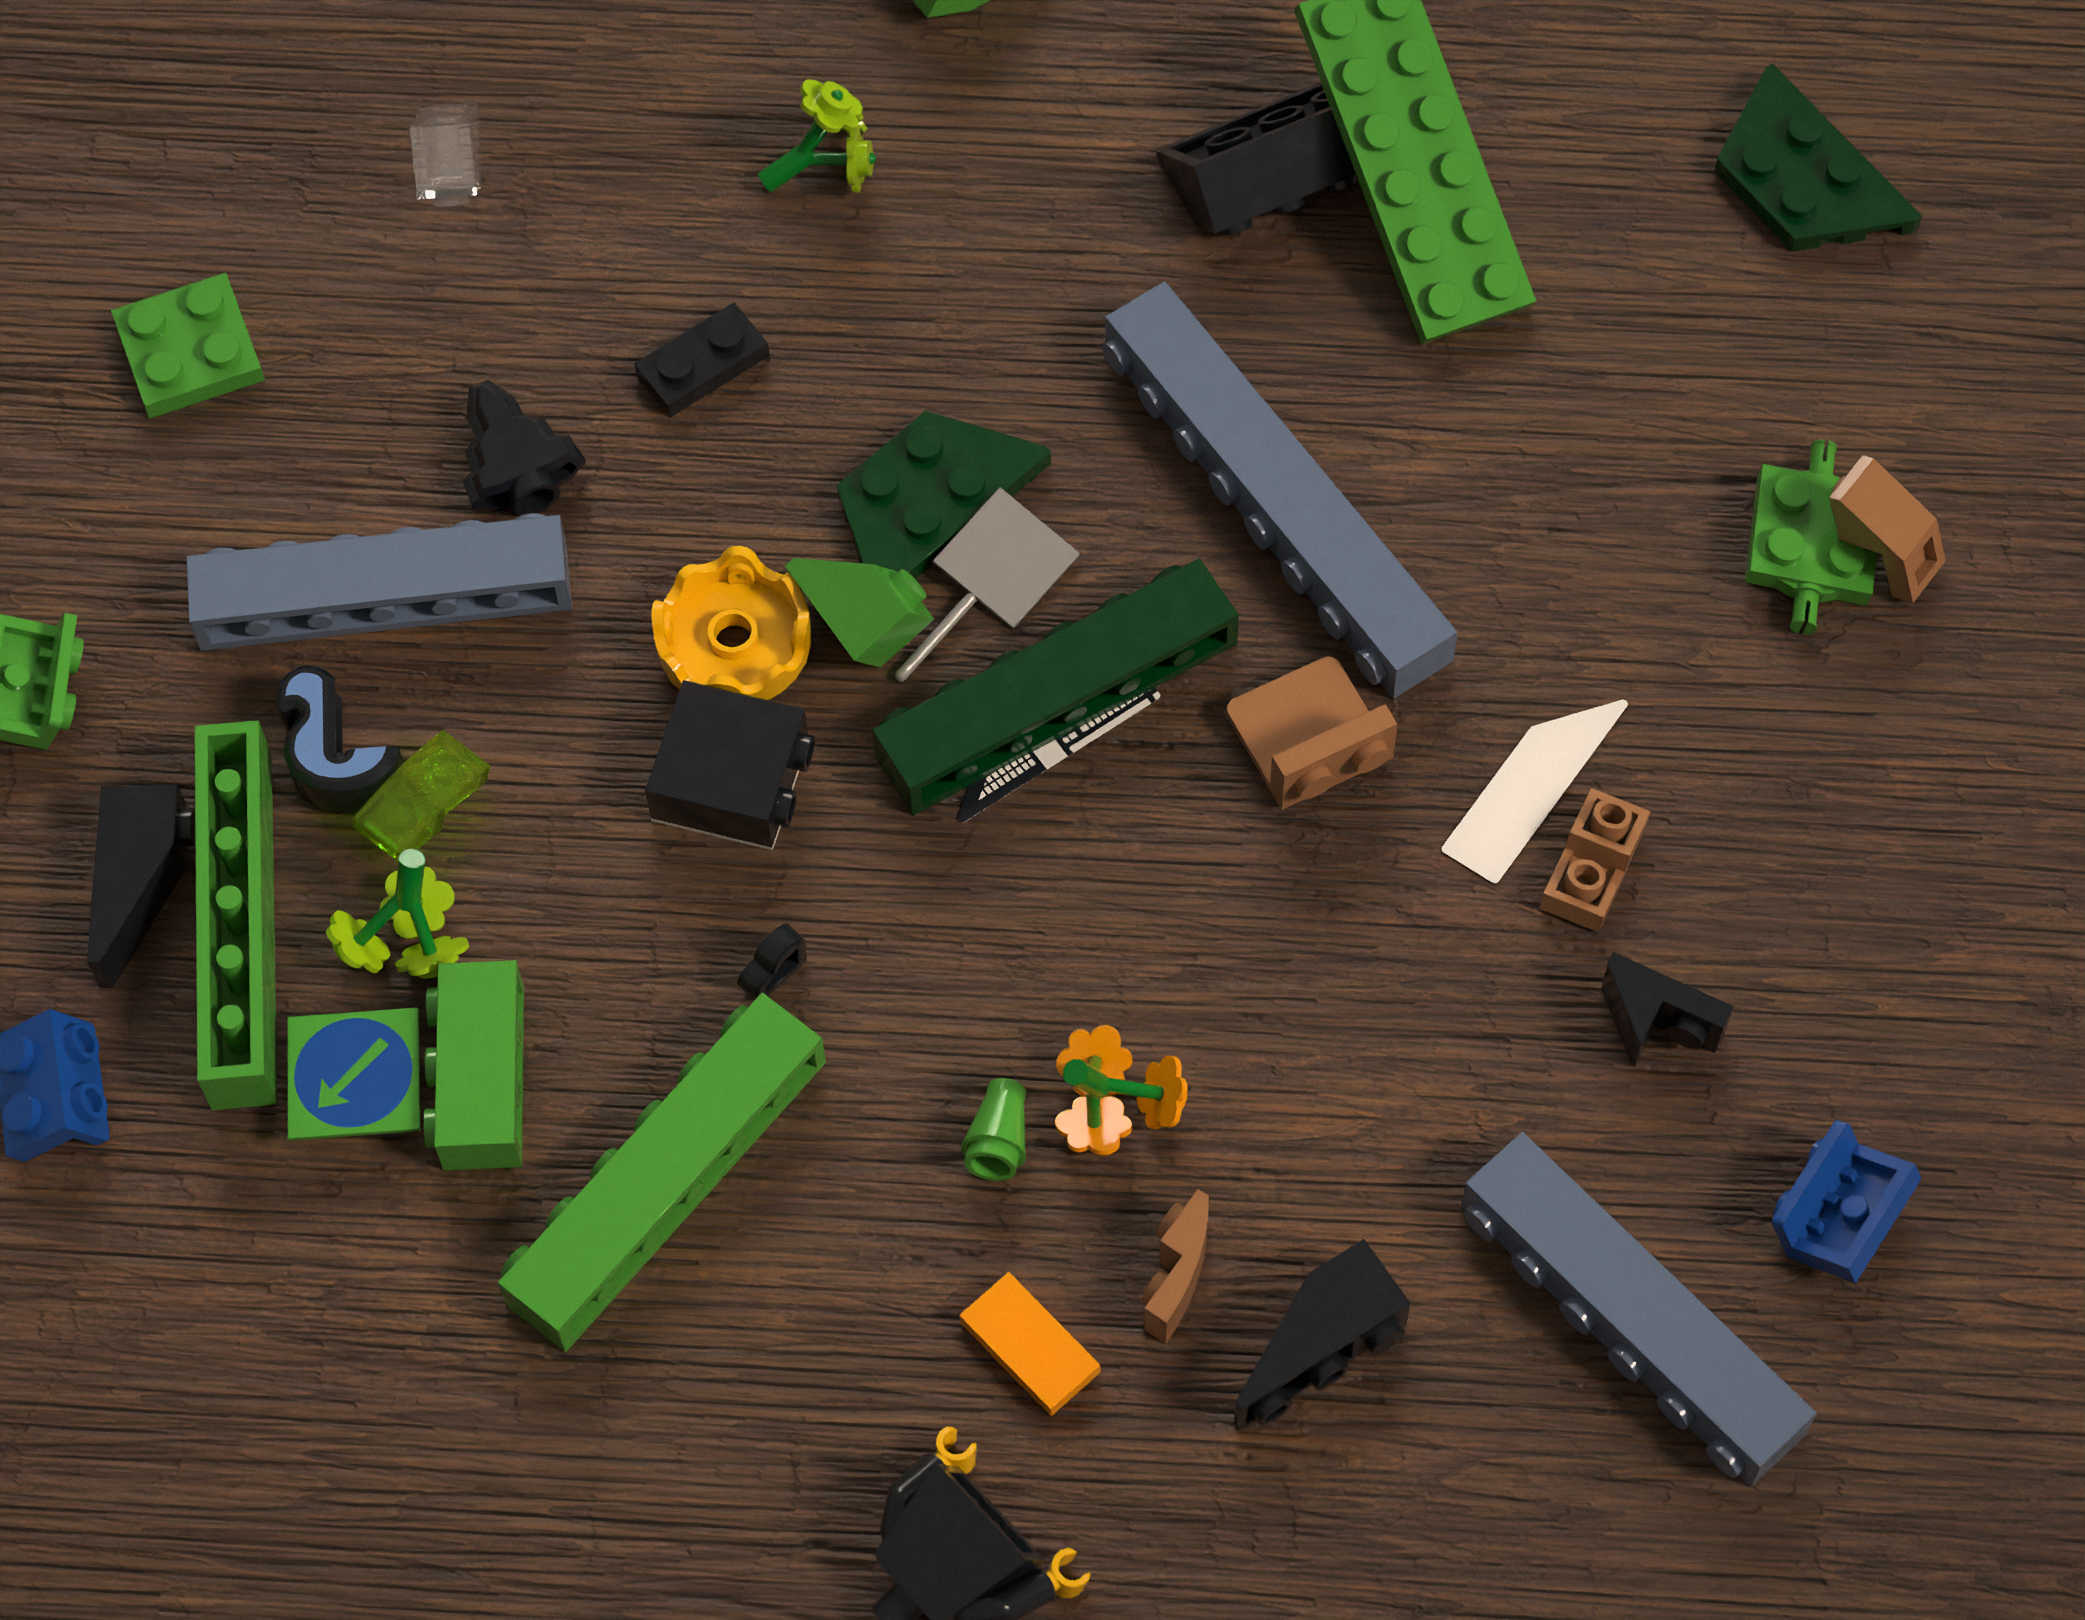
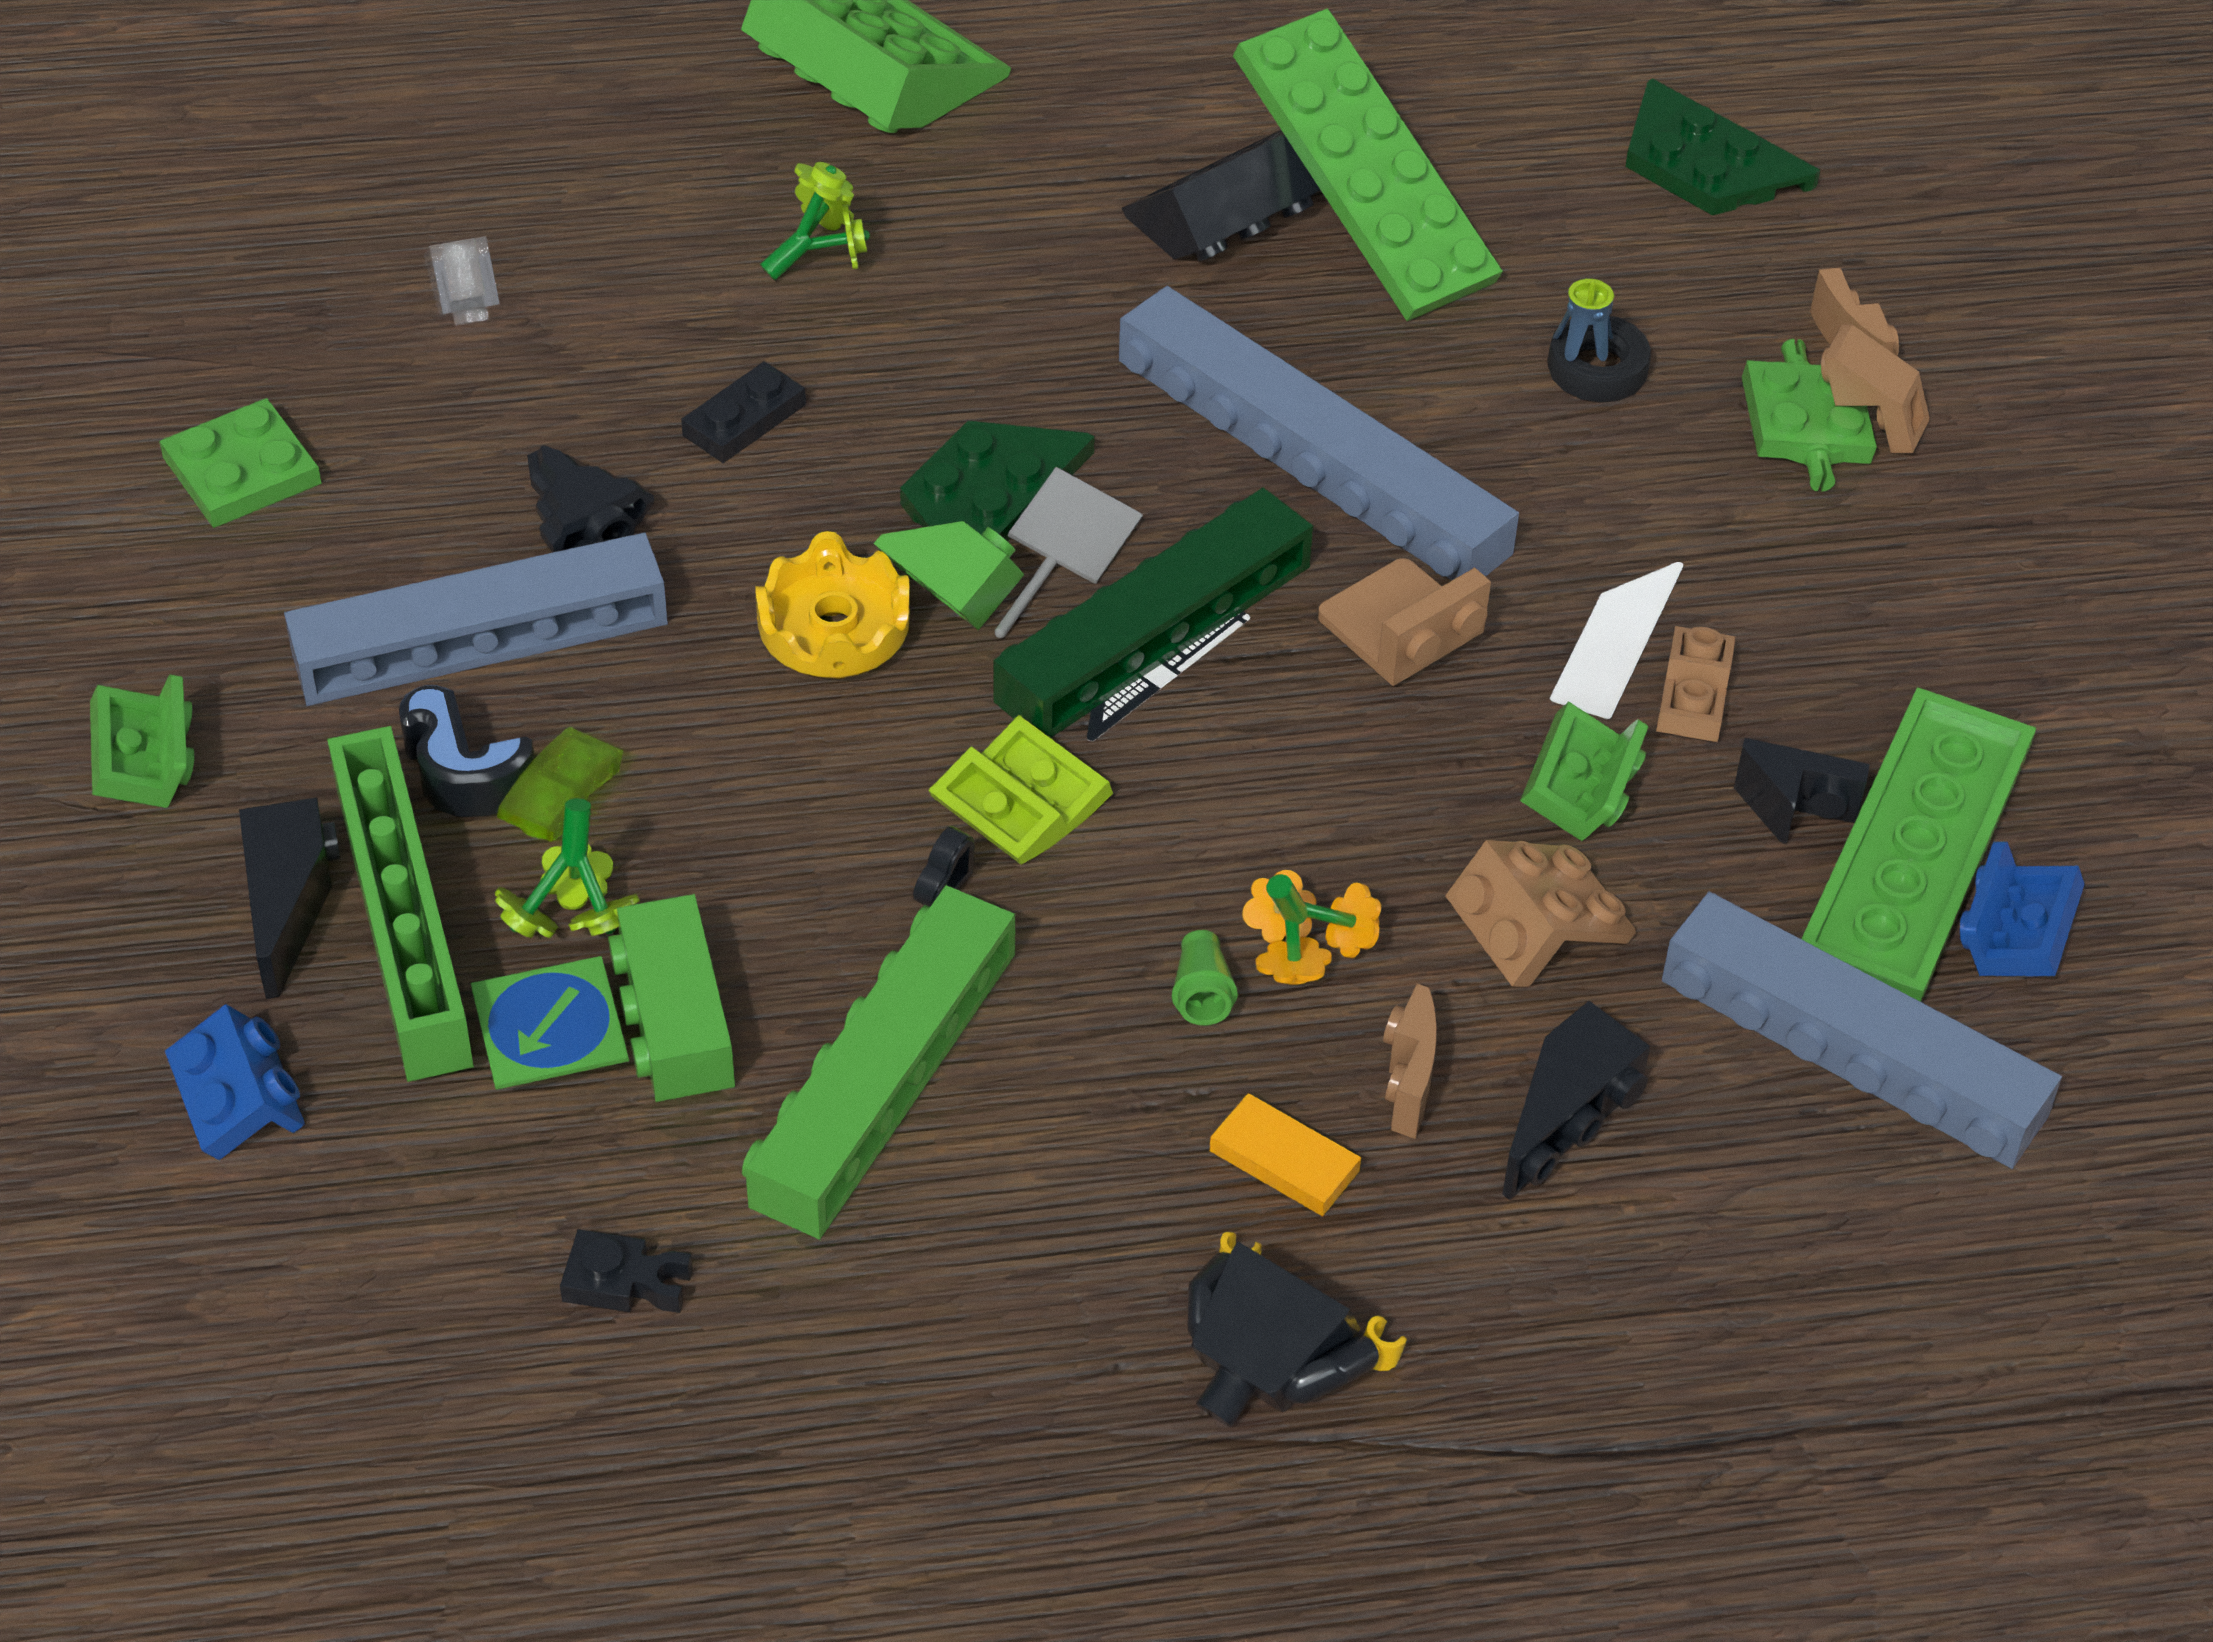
camera: 15 degrees left, 15 degrees down
(363, 1355) = (615, 1269): none -> black plate
(729, 765) = (859, 716): black piece -> none
(873, 876) = (1021, 791): none -> lime slope
(1355, 1104) = (1530, 900): none -> medium nougat bracket
(1444, 953) = (1584, 771): none -> bright green bracket
(1598, 386) = (1588, 305): none -> flat silver piece
(1618, 396) = (1599, 382): none -> black tyre
(1764, 1098) = (1919, 840): none -> bright green plate
(1892, 438) = (1838, 305): none -> medium nougat slope

